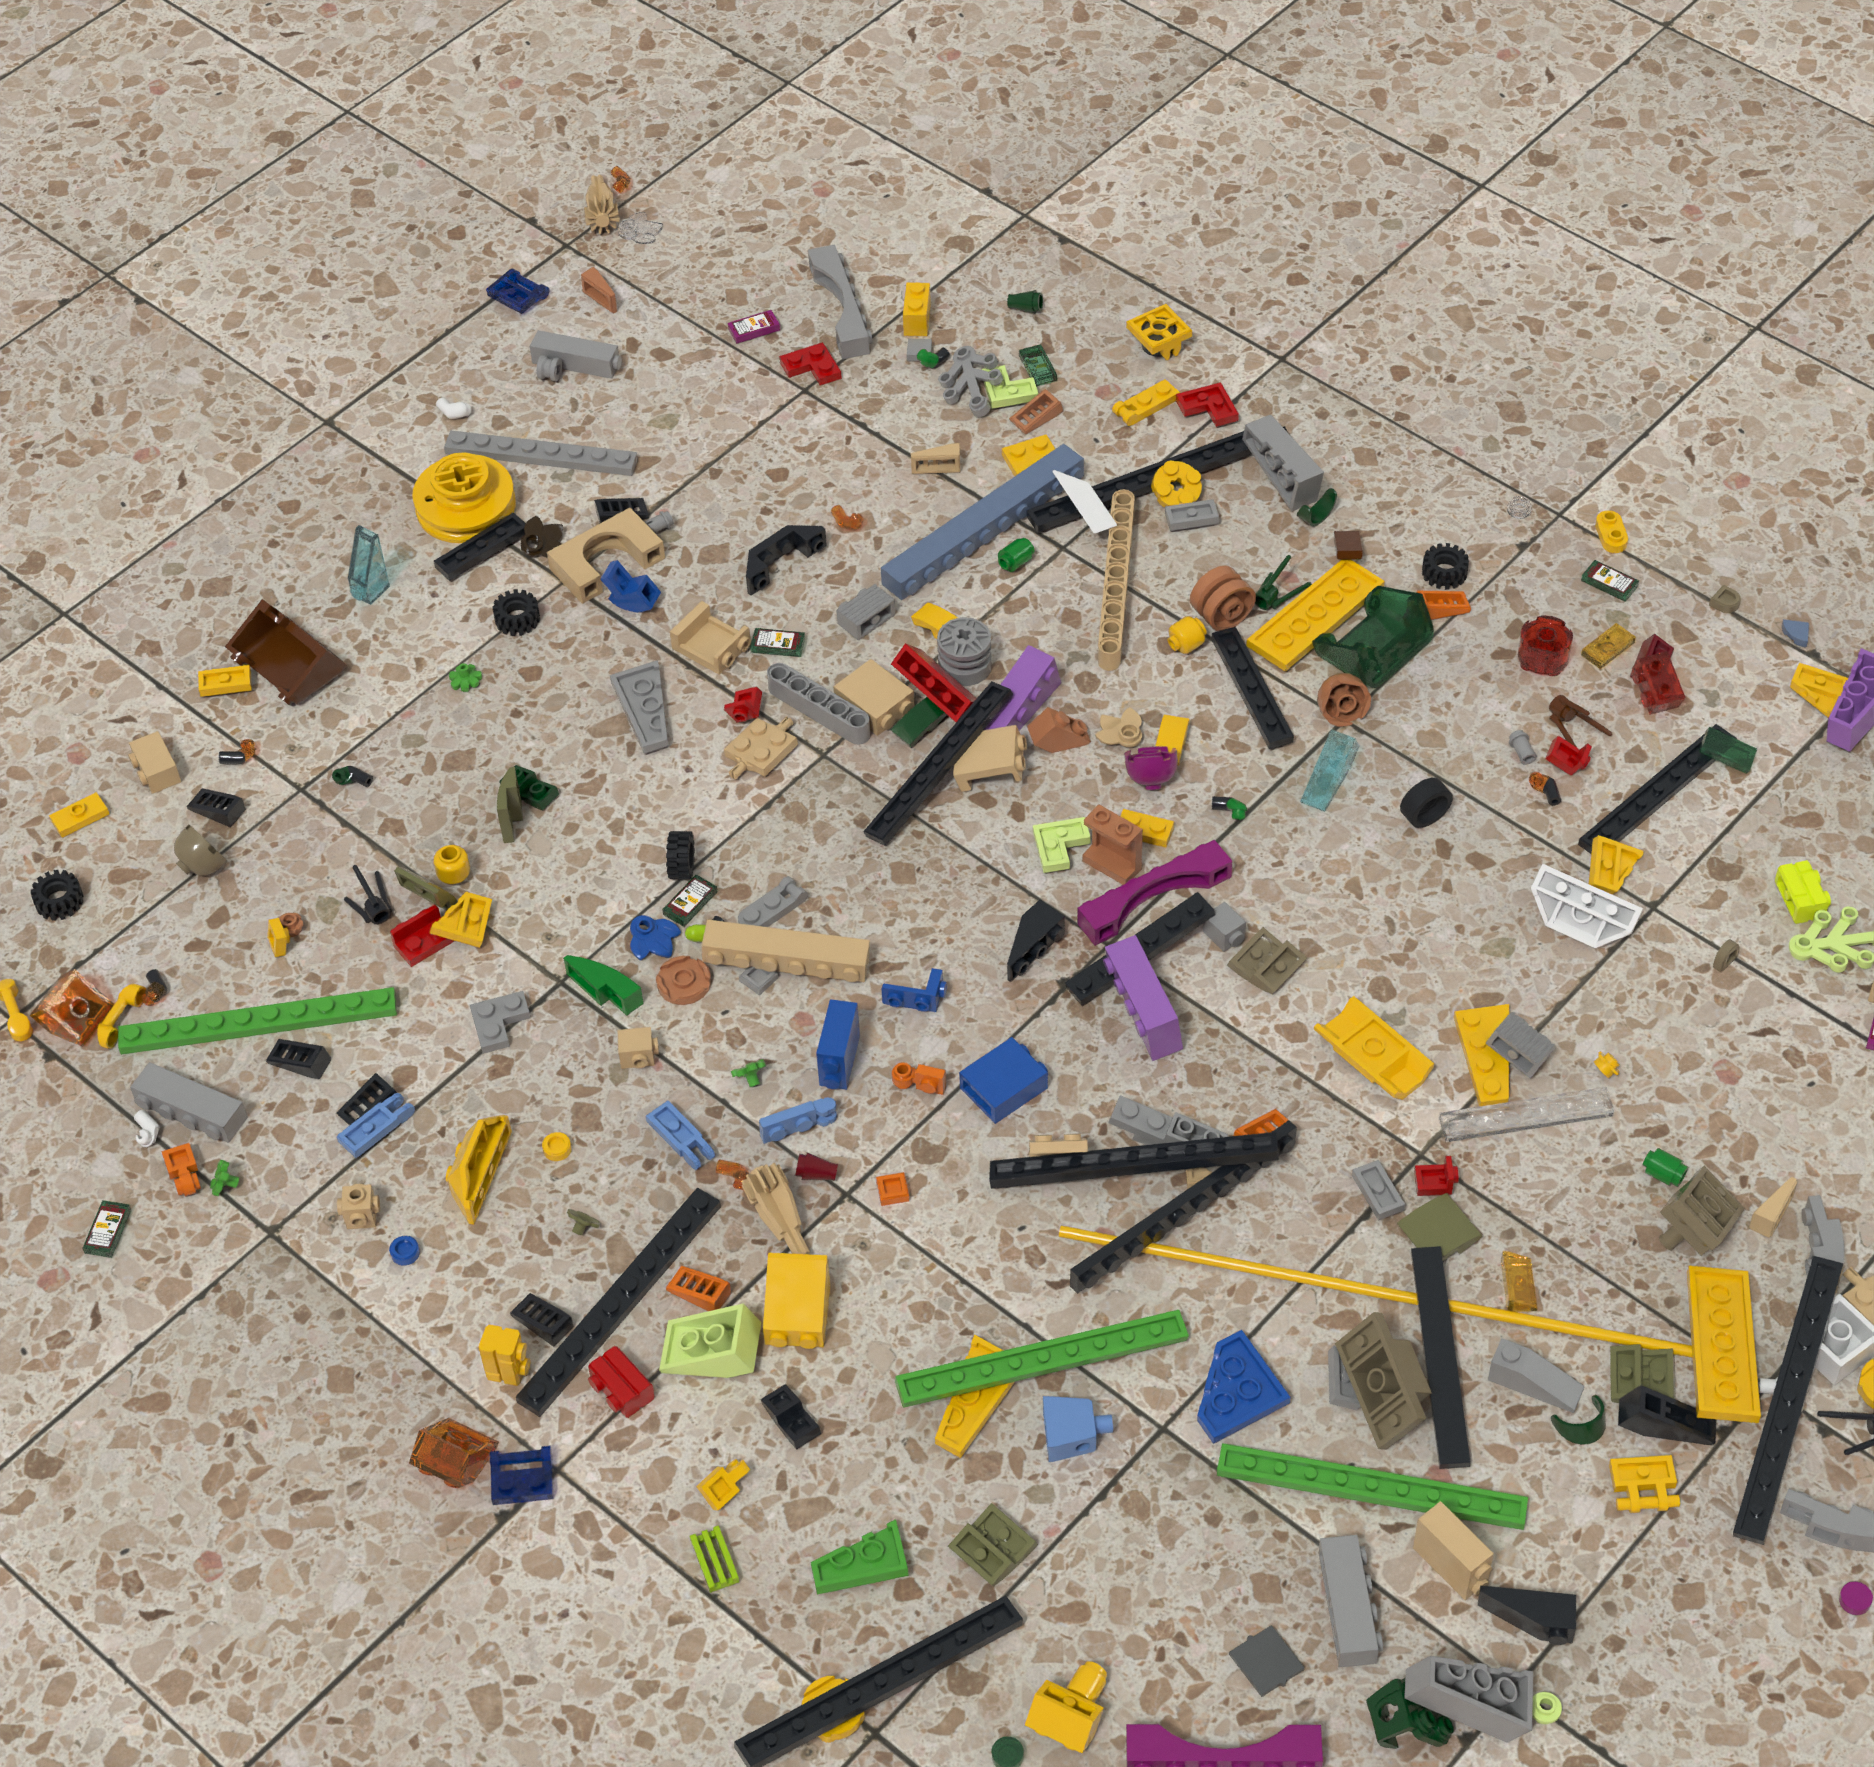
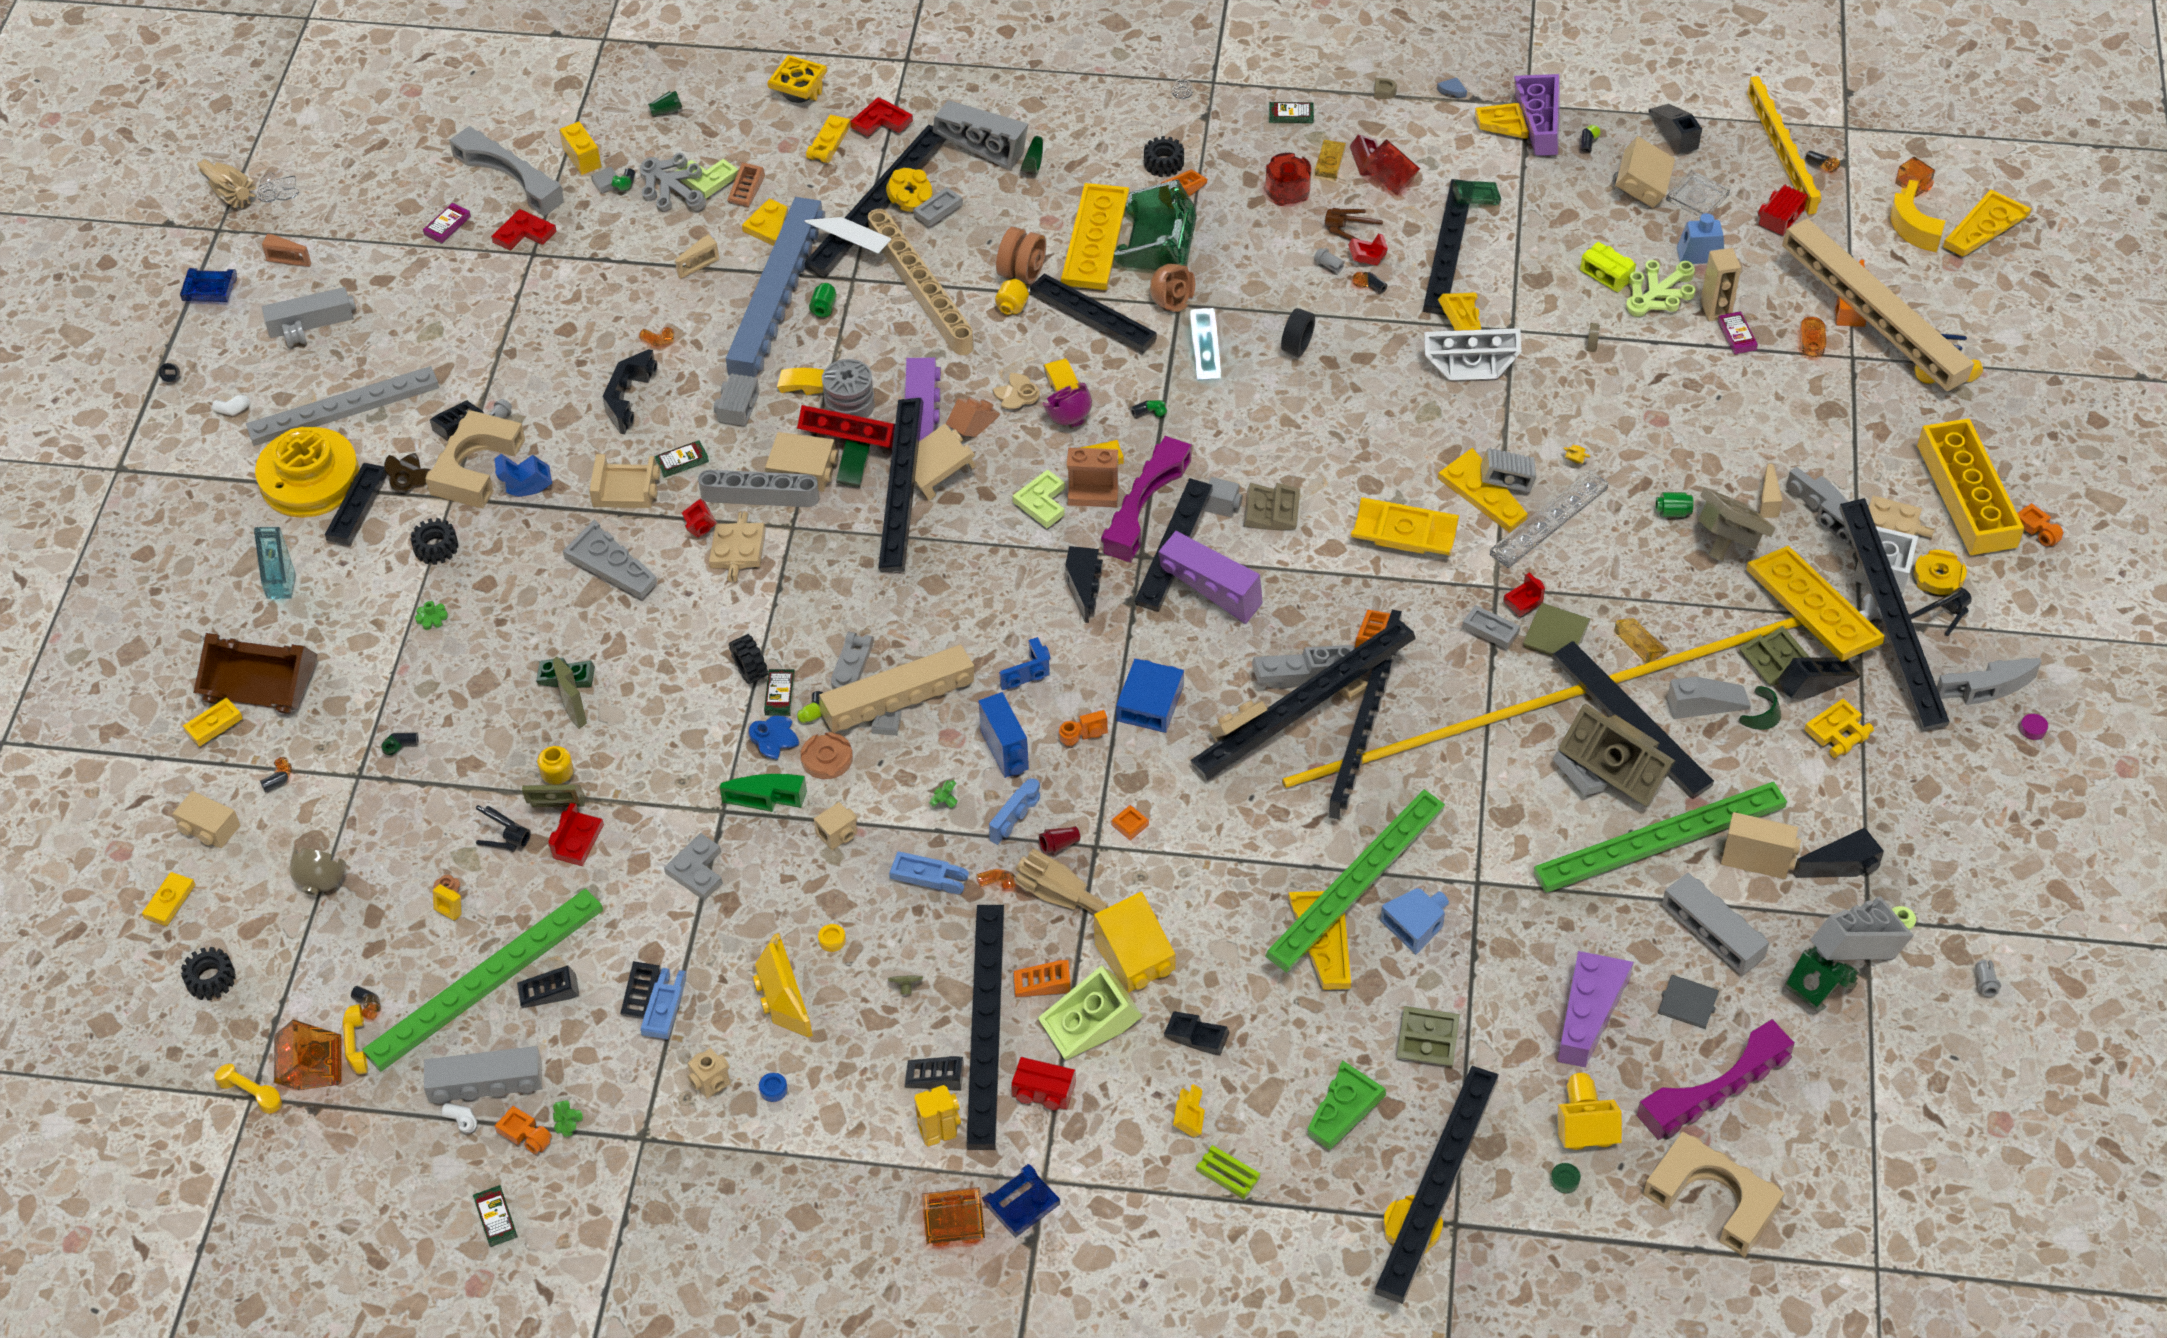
camera: 35 degrees left, 0 degrees up
(227, 817) = (302, 833): black slope -> none
(422, 358) = (169, 377): none -> black hinge
(465, 920) = (604, 803): yellow wing -> none
(623, 179) = (224, 153): clear orange arm -> none
(1038, 365) = (714, 148): clear green tile -> none
(1166, 1602) = (1592, 999): none -> medium lavender wedge
(1238, 1389) = (1510, 822): blue plate -> none
(1268, 594) = (1052, 241): dark green plant -> none
(1348, 545) = (1079, 173): reddish brown tile -> none
(1611, 531) = (1263, 77): yellow plate -> none

